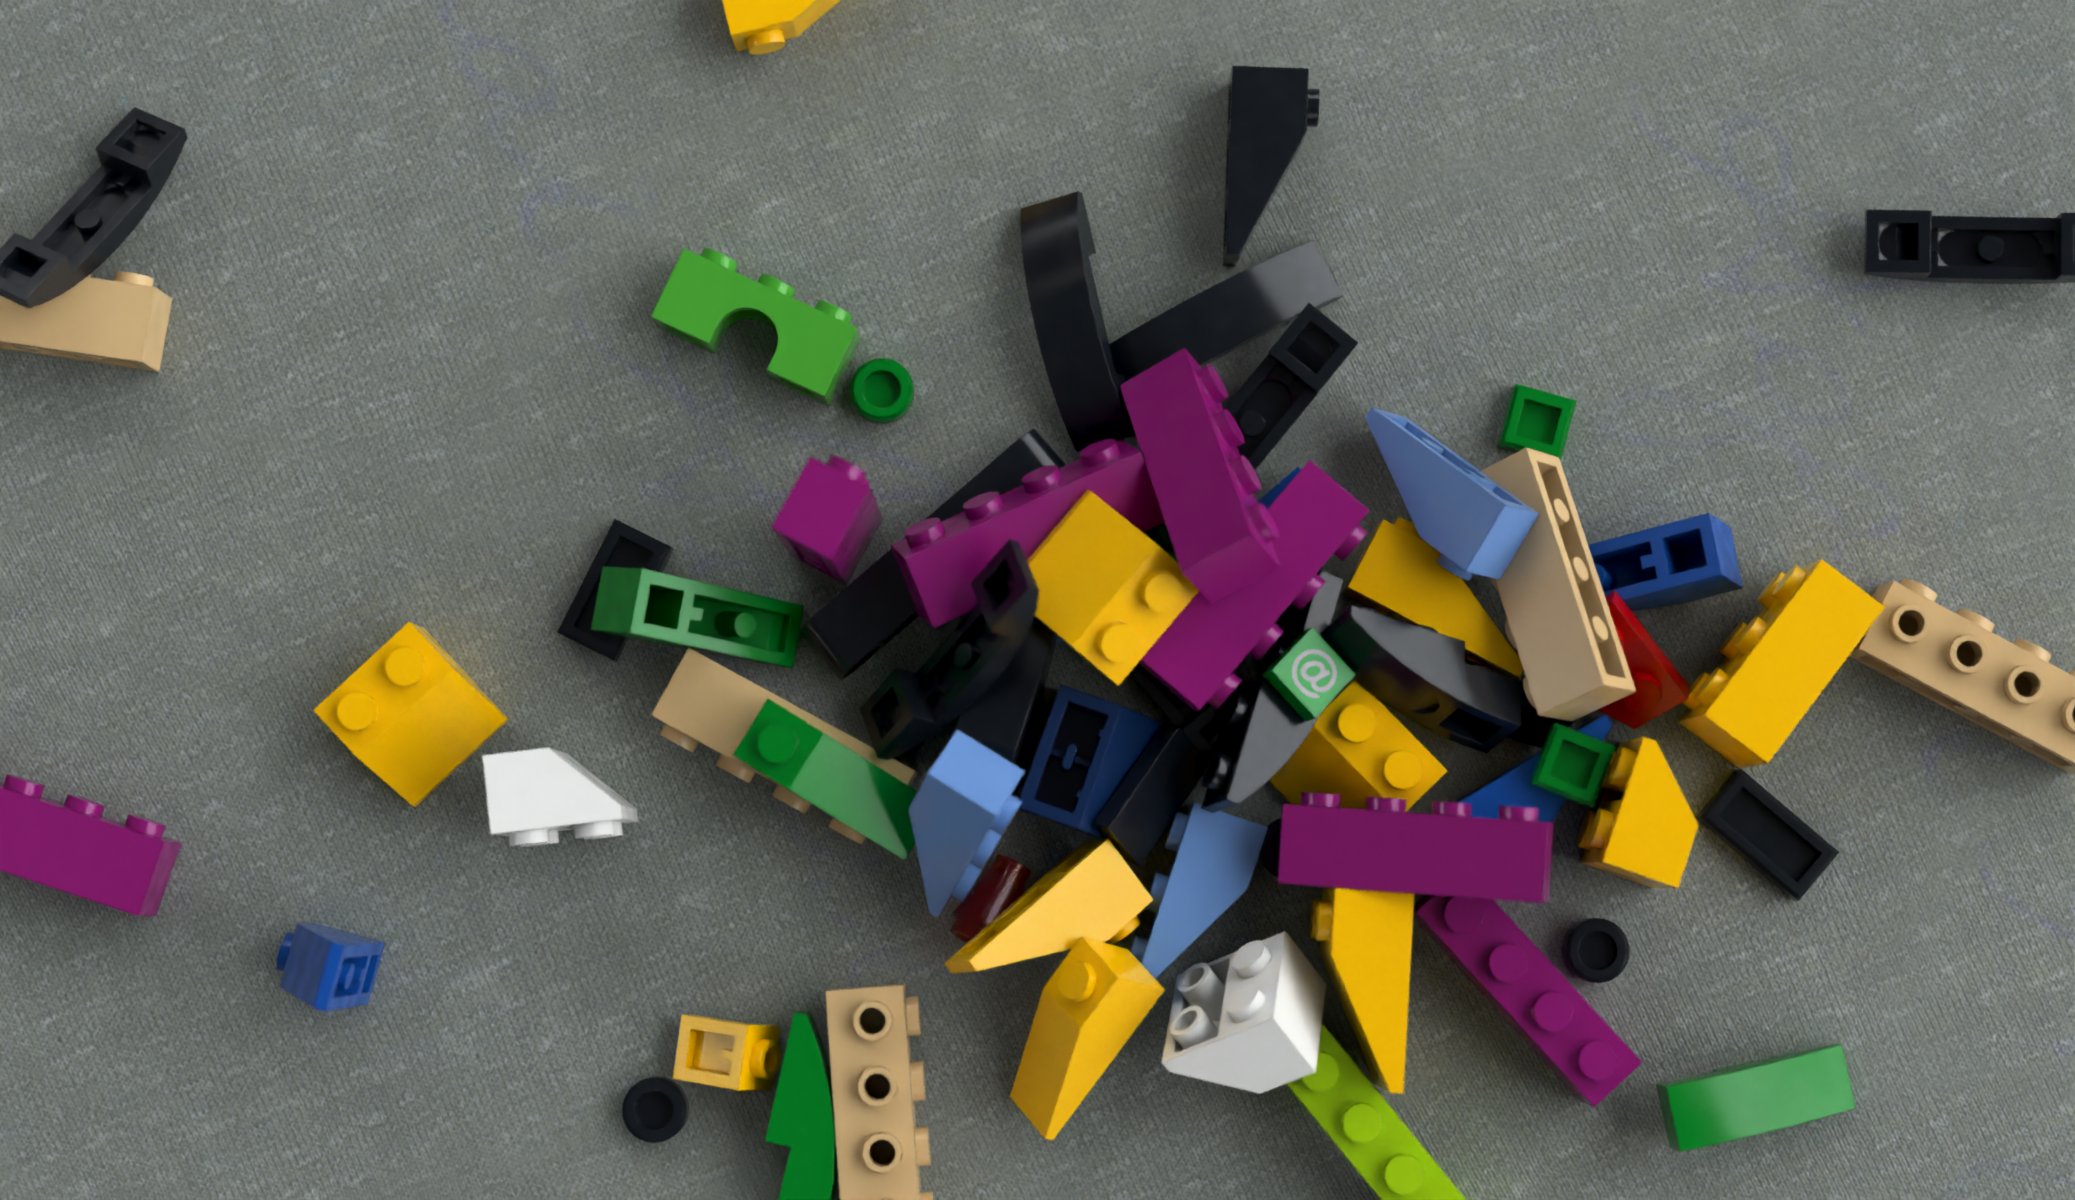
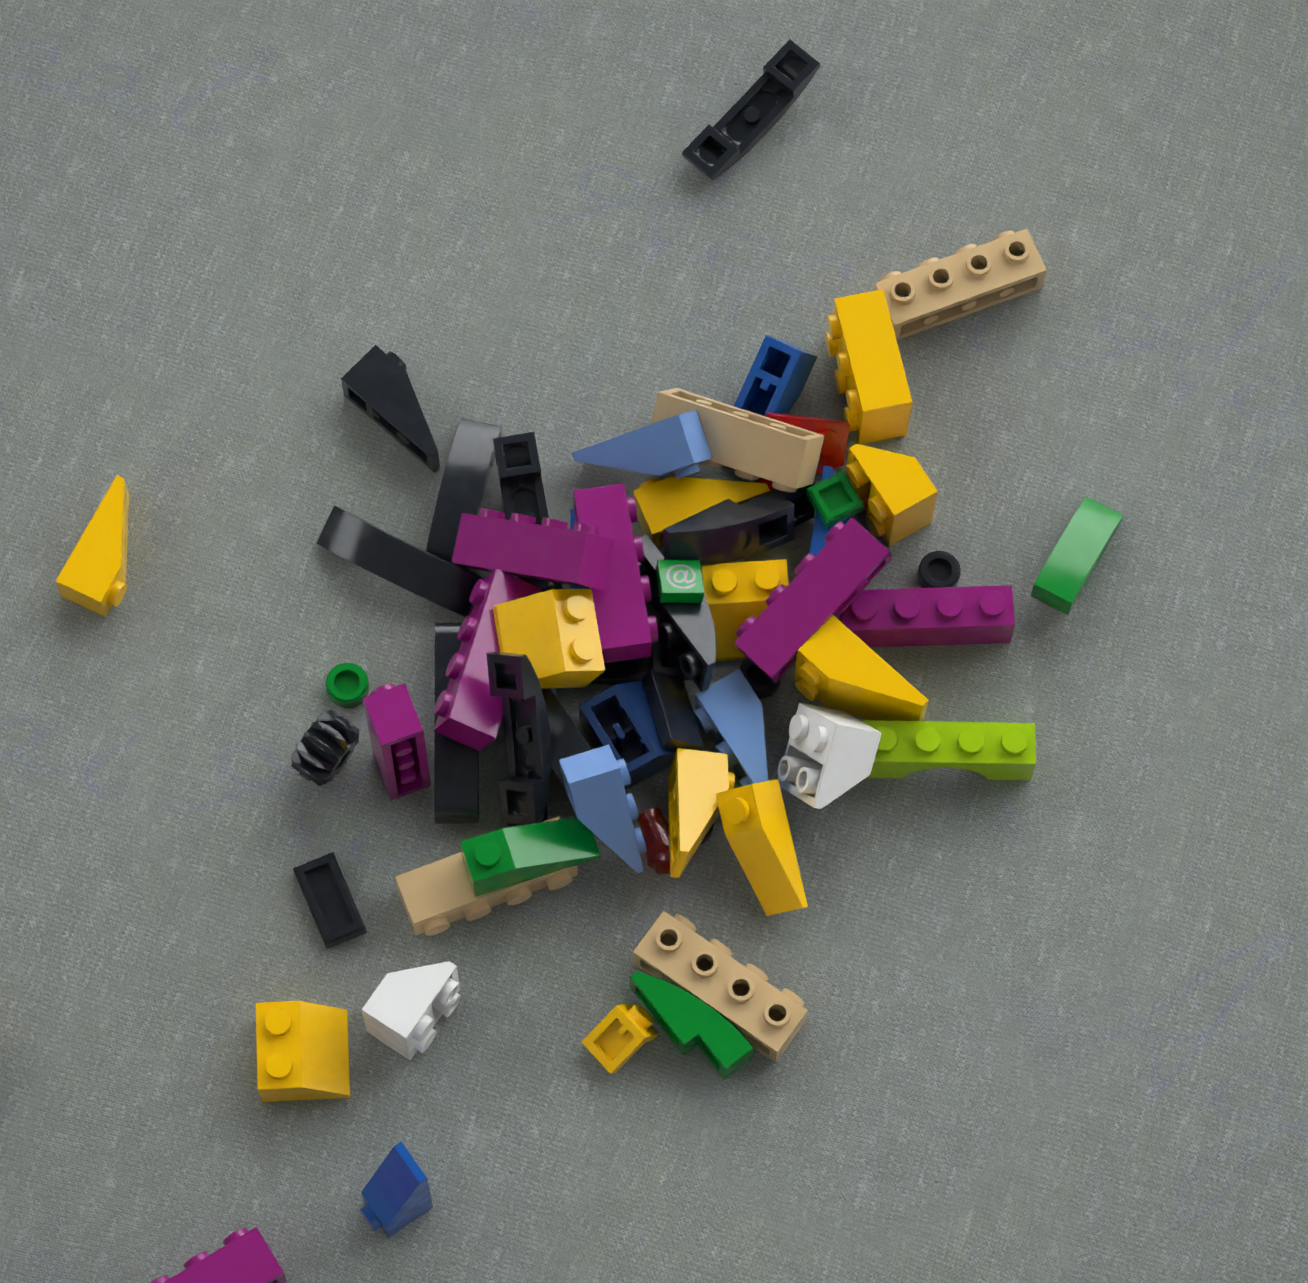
camera: 50 degrees left, 15 degrees down
(655, 1109) = (618, 1099): black tile -> none
(696, 616) = (370, 867): green slope -> none
(710, 297) = (222, 723): bright green arch -> none
(775, 435) = (325, 747): none -> black gear
(1536, 421) = (644, 385): green tile -> none
(1767, 834) = (952, 446): black tile -> none

